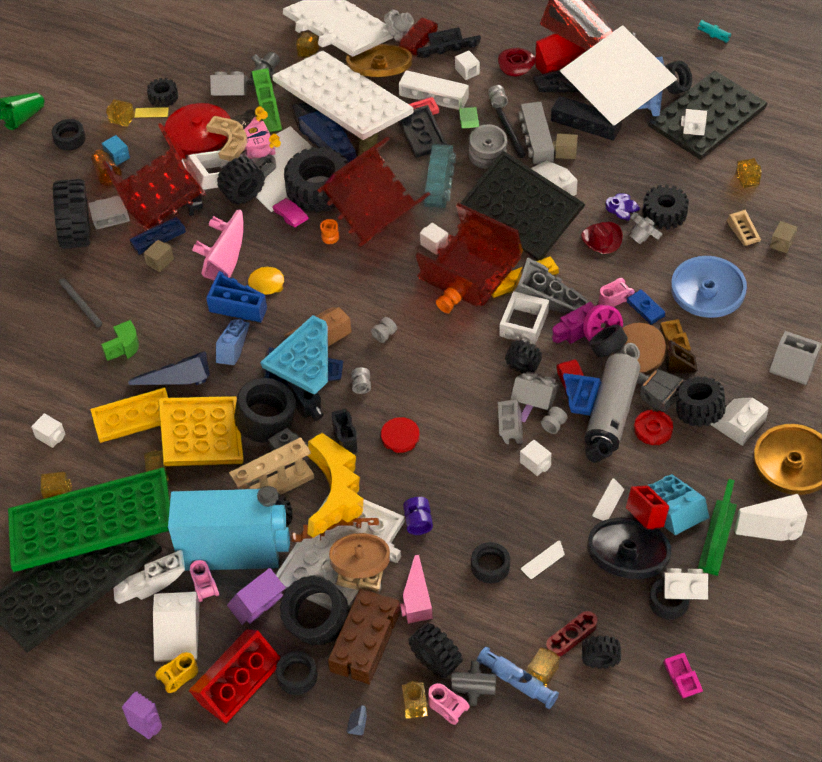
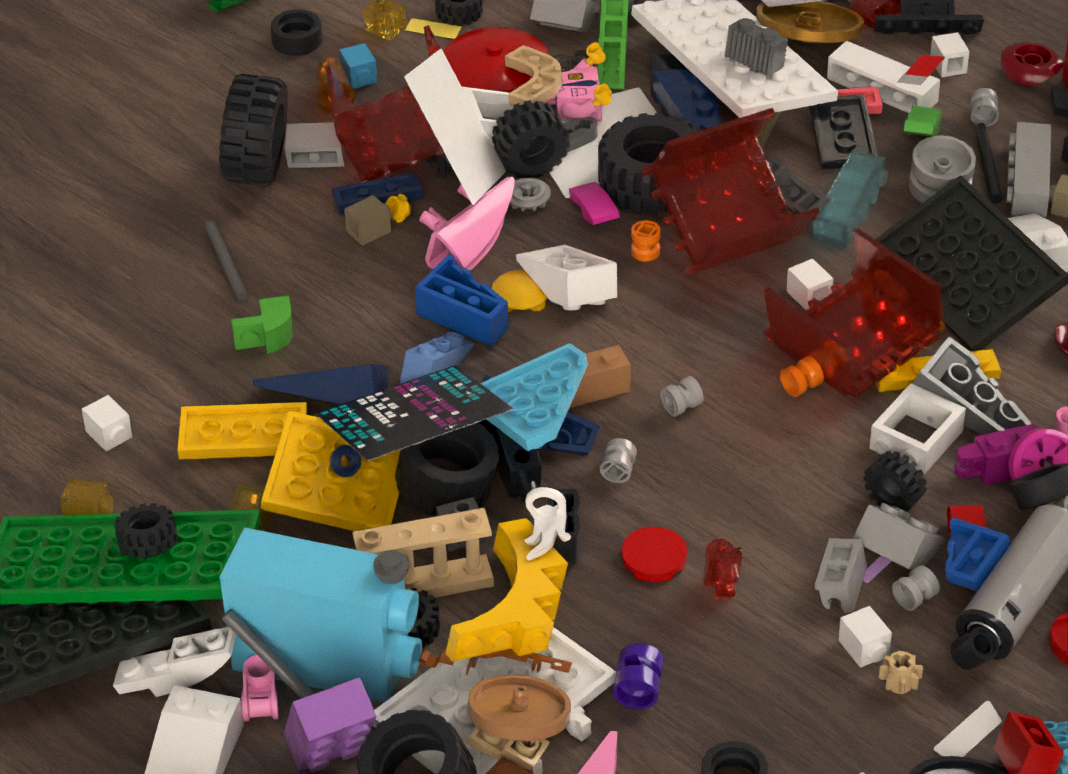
camera: 15 degrees right, 10 degrees down
(105, 507) = (146, 531): none -> black tyre
(175, 242) = (399, 207): none -> yellow plate
(199, 186) = (455, 125): none -> white sticker
(209, 423) = (353, 461): none -> dark blue plate
(209, 564) = (266, 654): none -> dark grey bar
(236, 383) = (413, 412): none -> black sticker
(249, 209) = (527, 187): none -> light grey gear
(293, 265) = (571, 275): none -> white slope
(338, 433) = (548, 521): none -> white piece
(358, 90) = (756, 46): none -> dark grey brick
(413, 184) = (795, 192): none -> dark grey slope
(443, 435) = (722, 567): none -> clear red hips
(455, 83) = (919, 72): none -> sticker
(562, 474) = (900, 672): none -> tan gear

